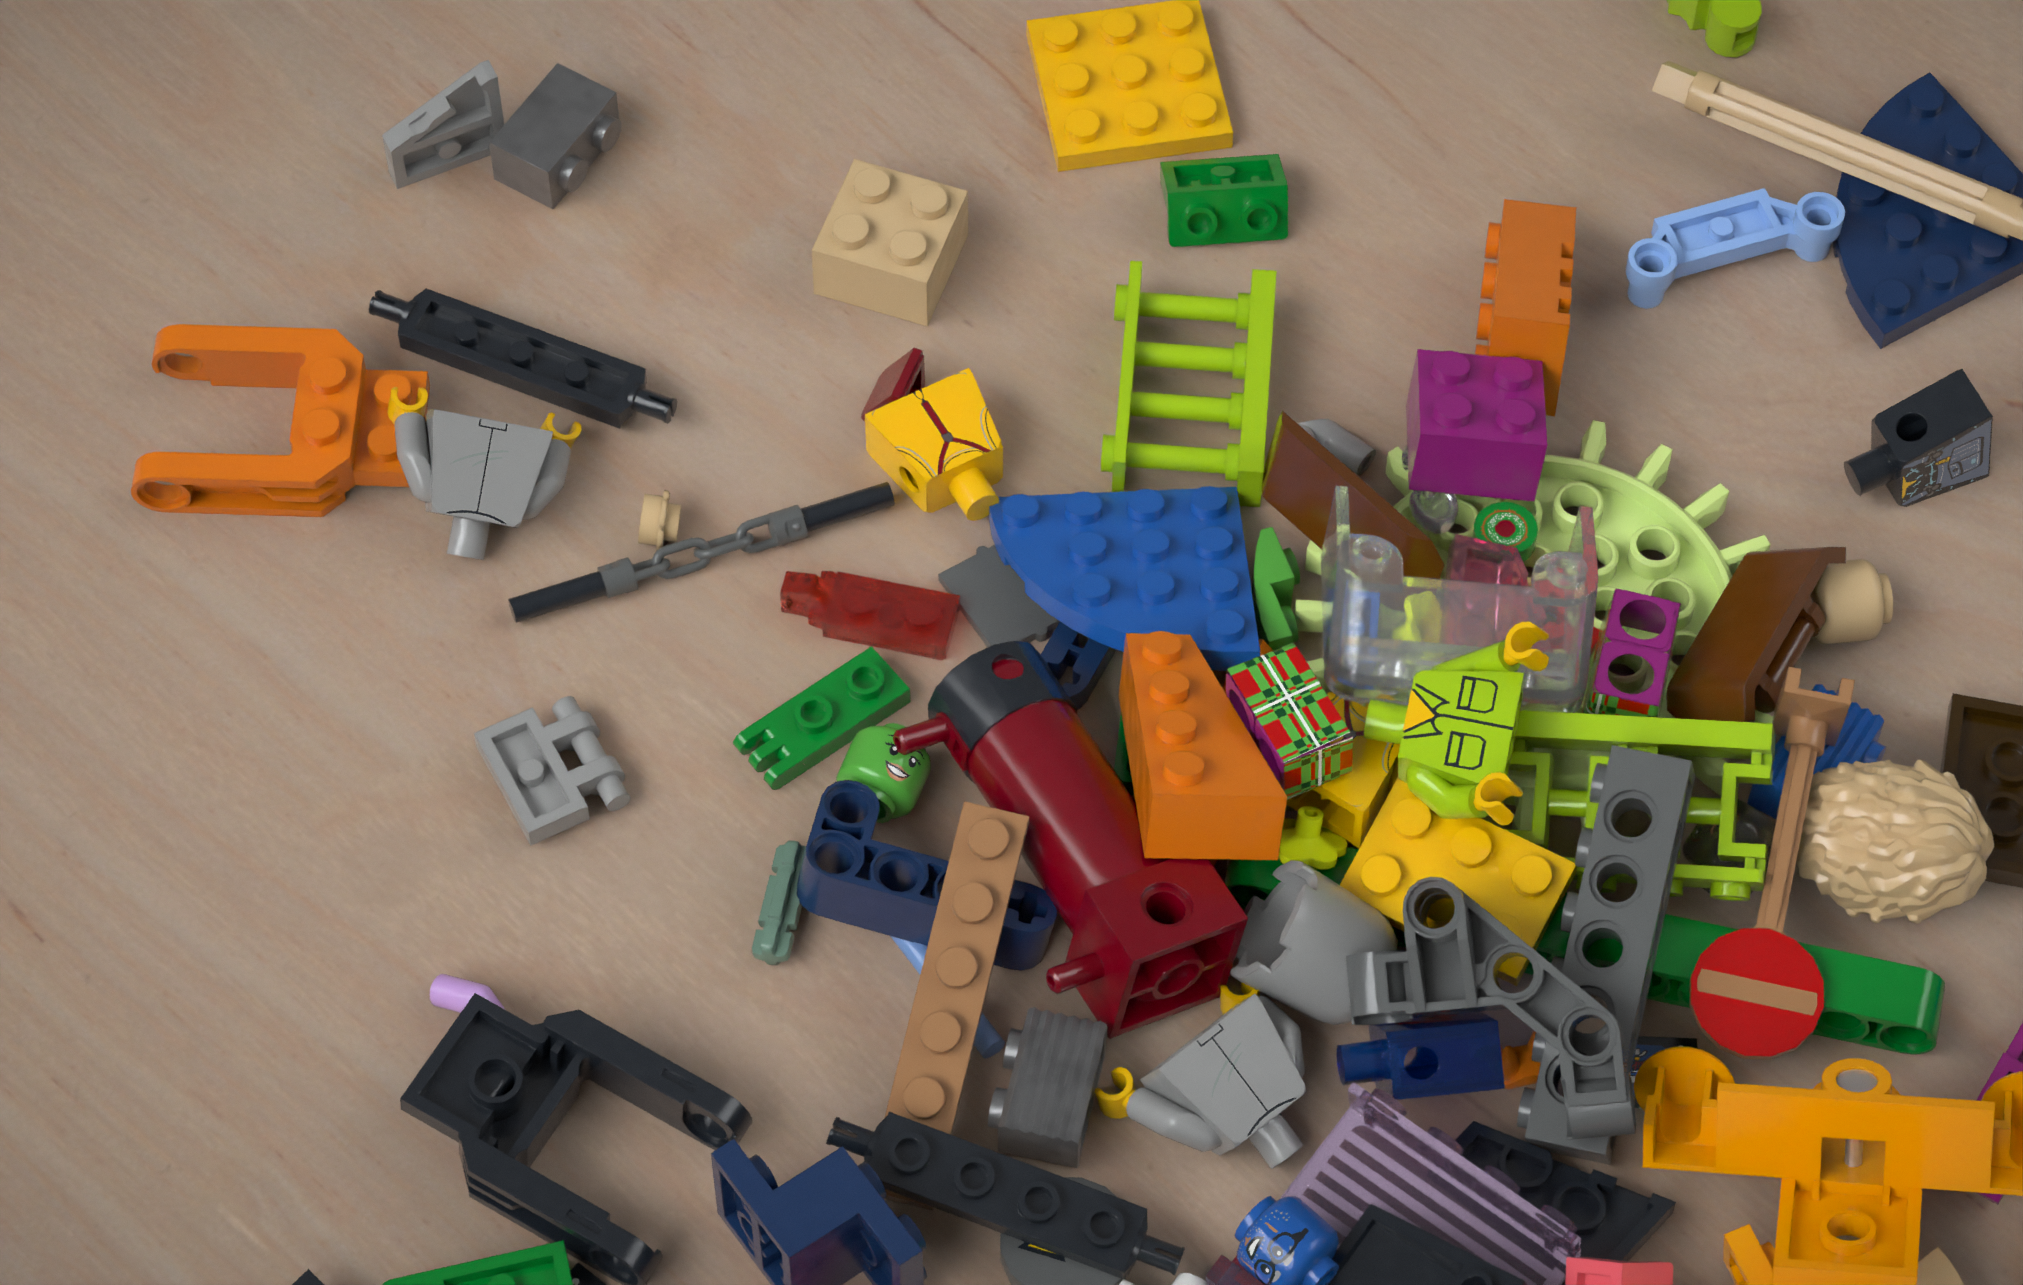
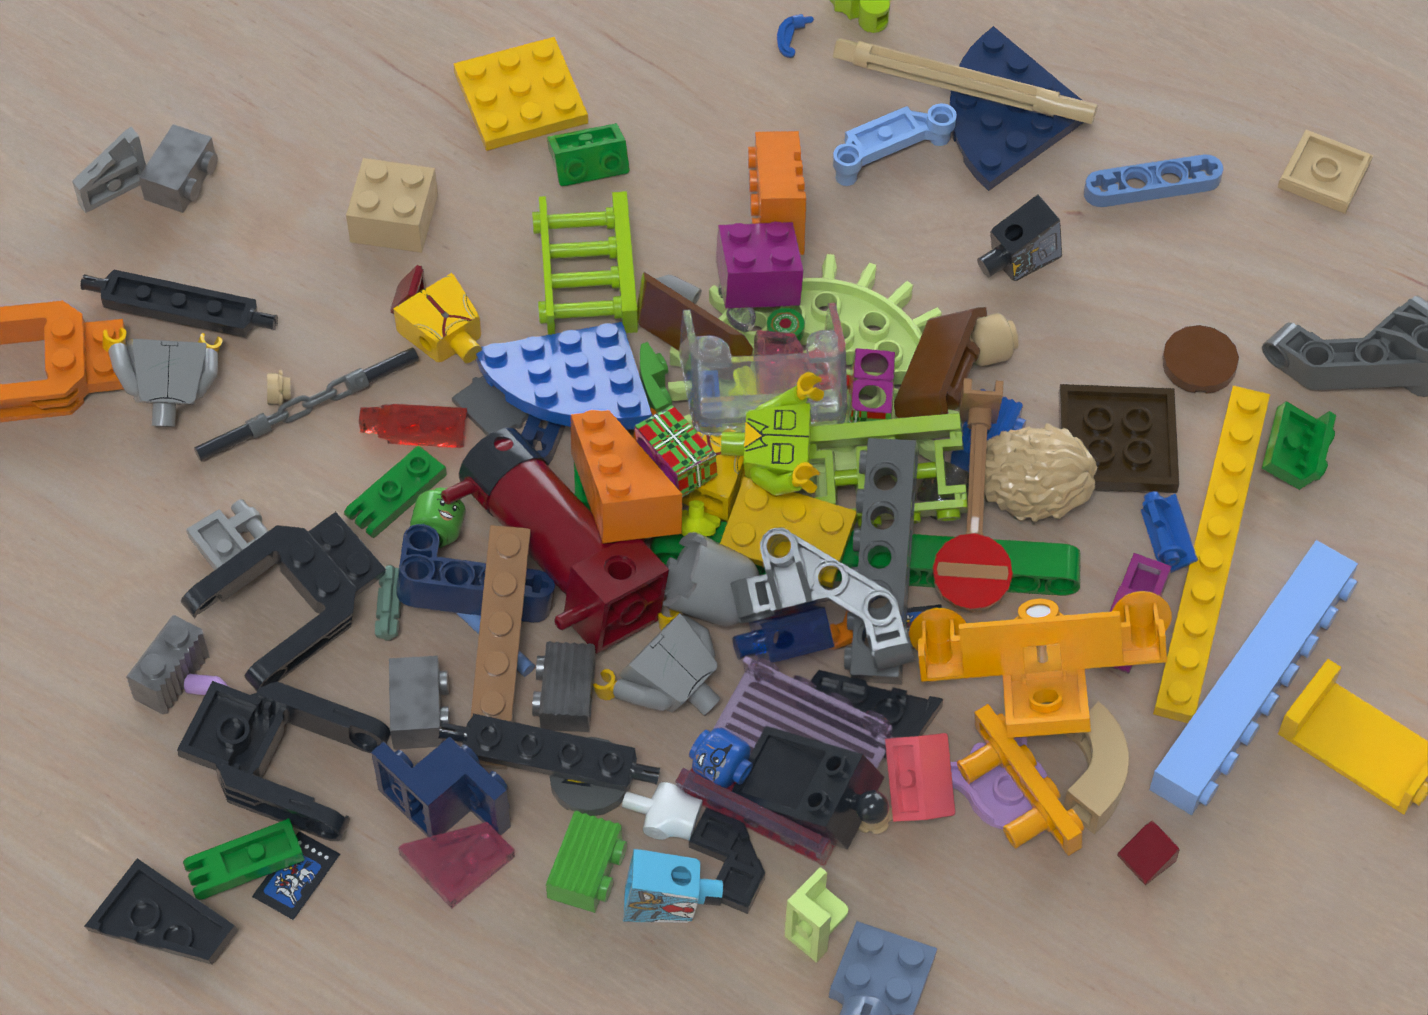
camera: 10 degrees left, 0 degrees up
(406, 952) = (166, 663): none -> flat silver brick
(685, 826) = (325, 568): none -> black plate
(802, 1075) = (416, 701): none -> flat silver brick
(1582, 37) = (786, 32): none -> blue piece

